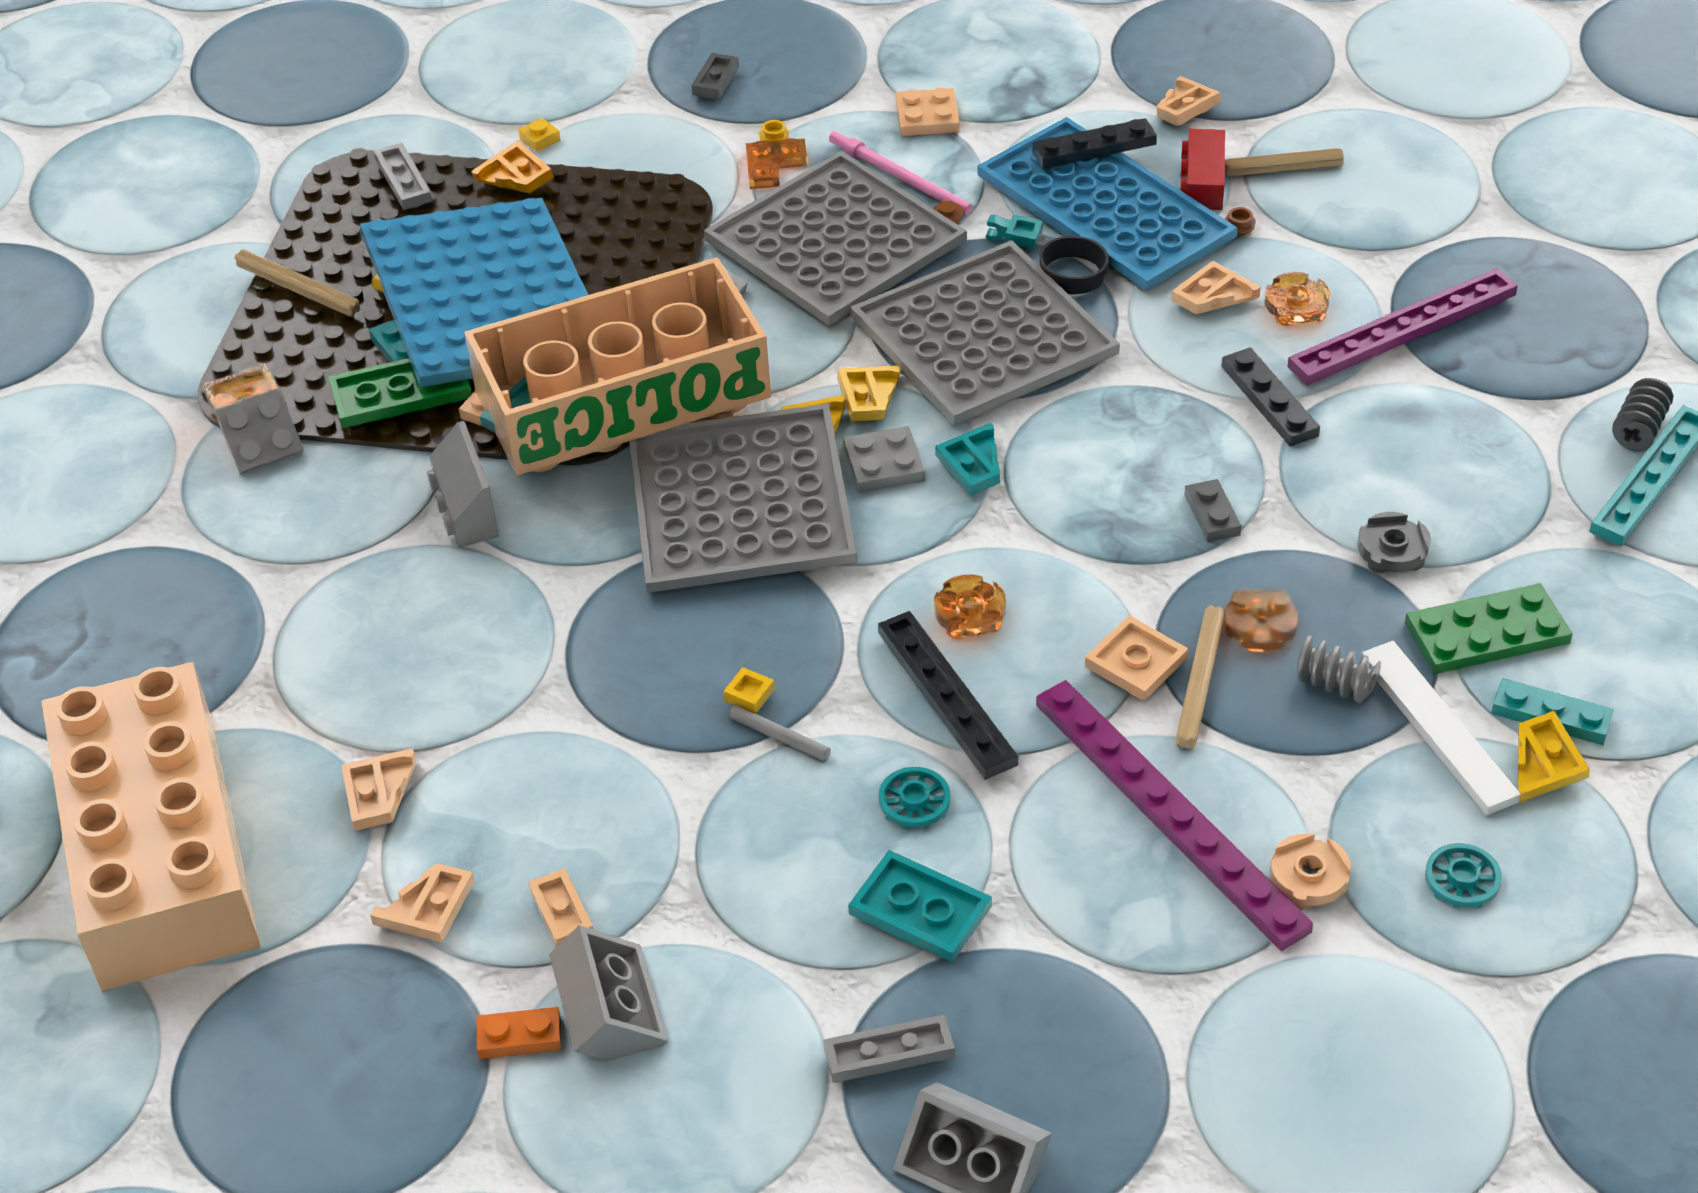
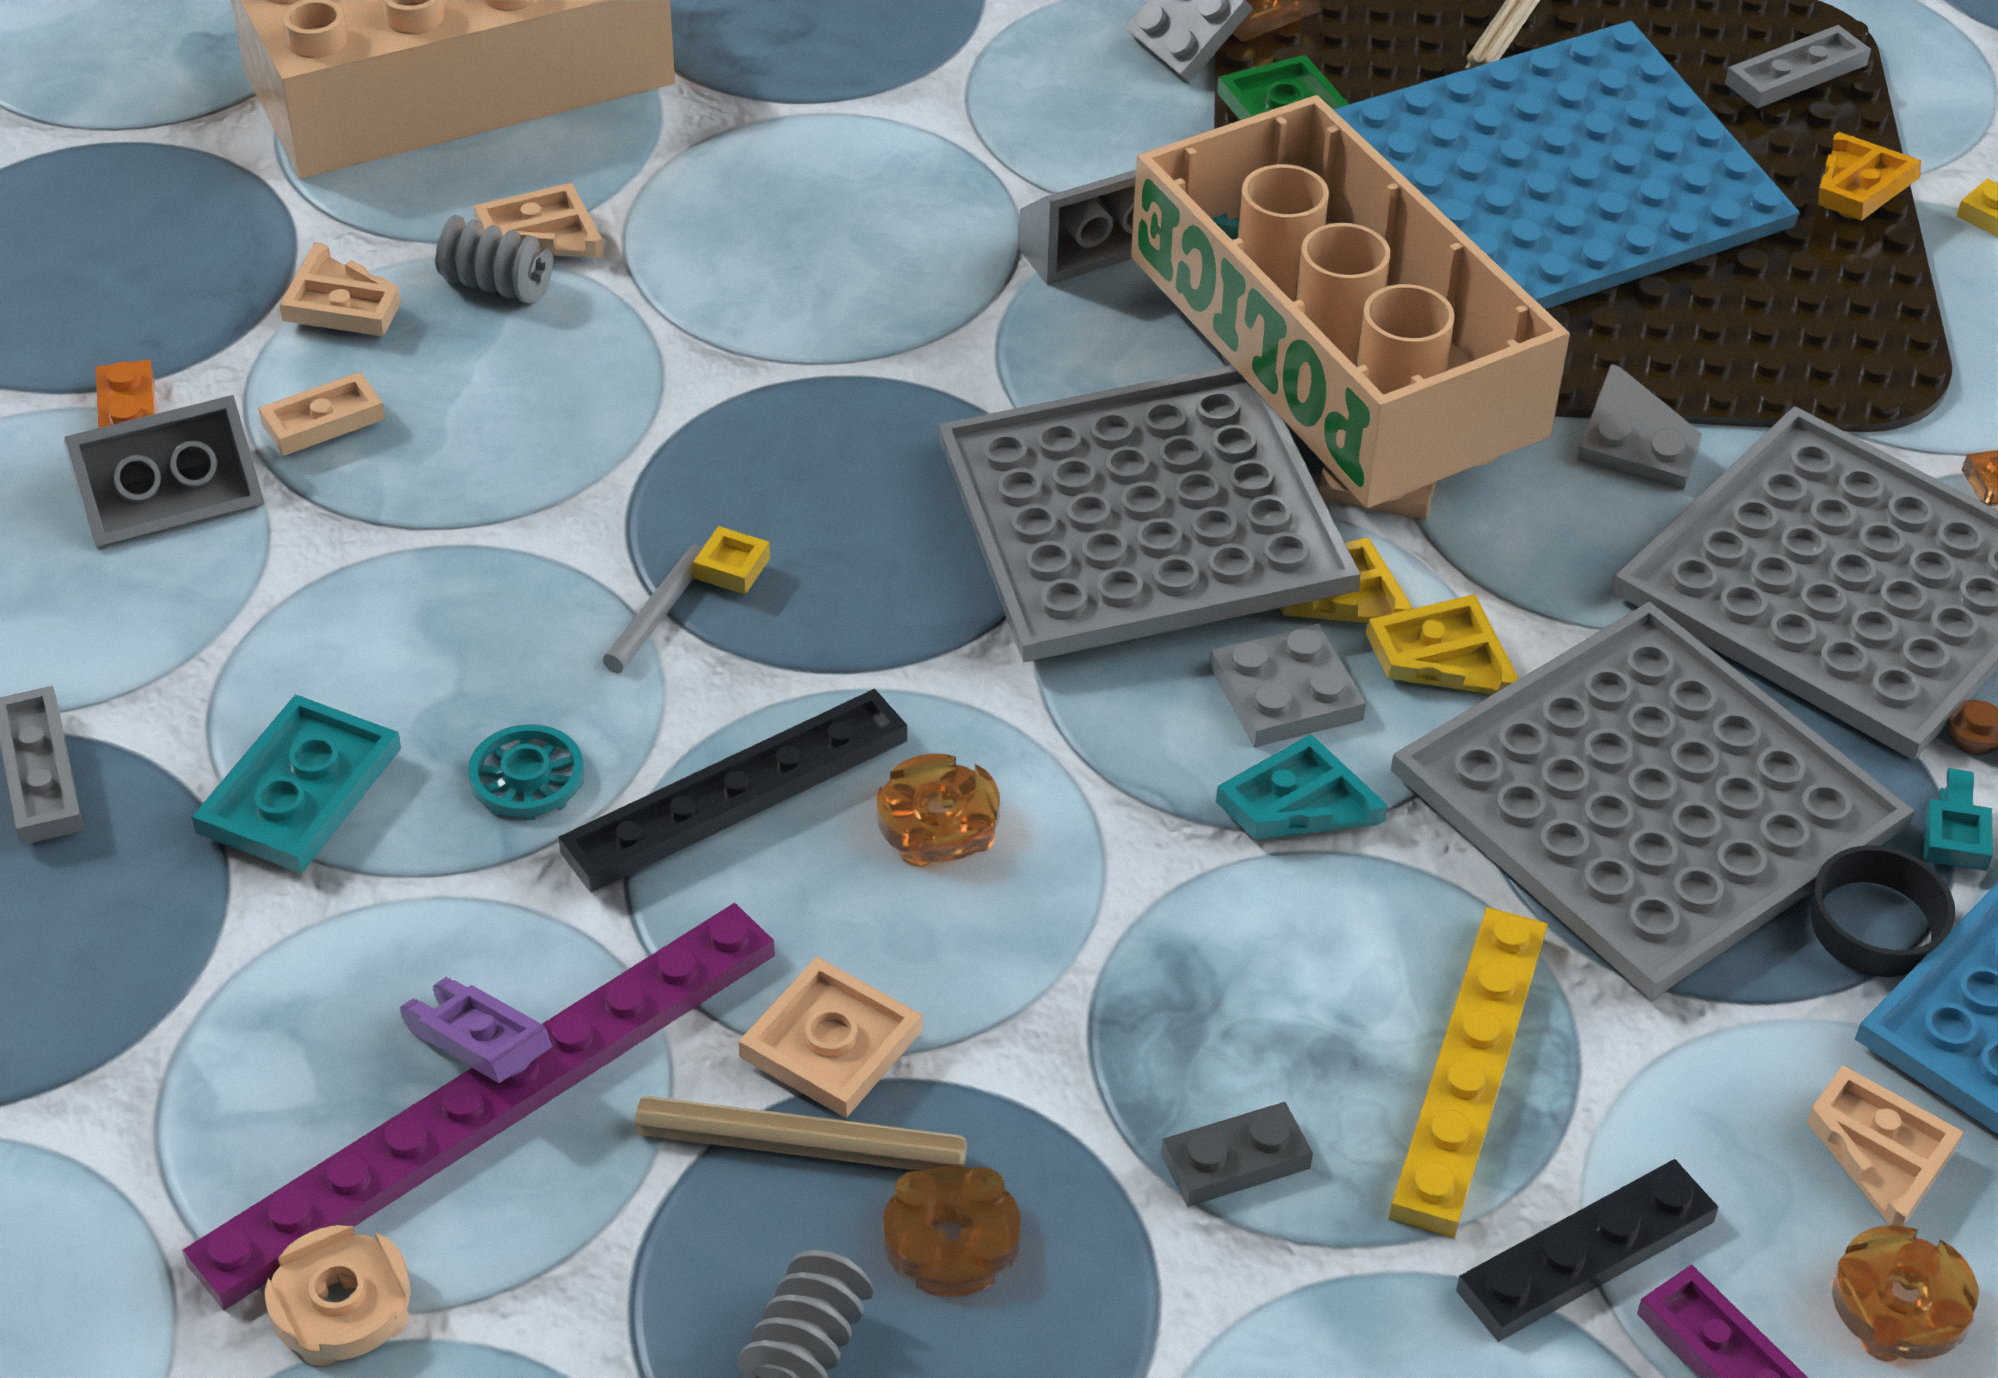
camera: 80 degrees right, 0 degrees up
(417, 811) = (493, 260): none -> light grey piece
(1137, 801) = (477, 1029): none -> medium lavender hinge
(1160, 421) = (1468, 1073): none -> yellow plate

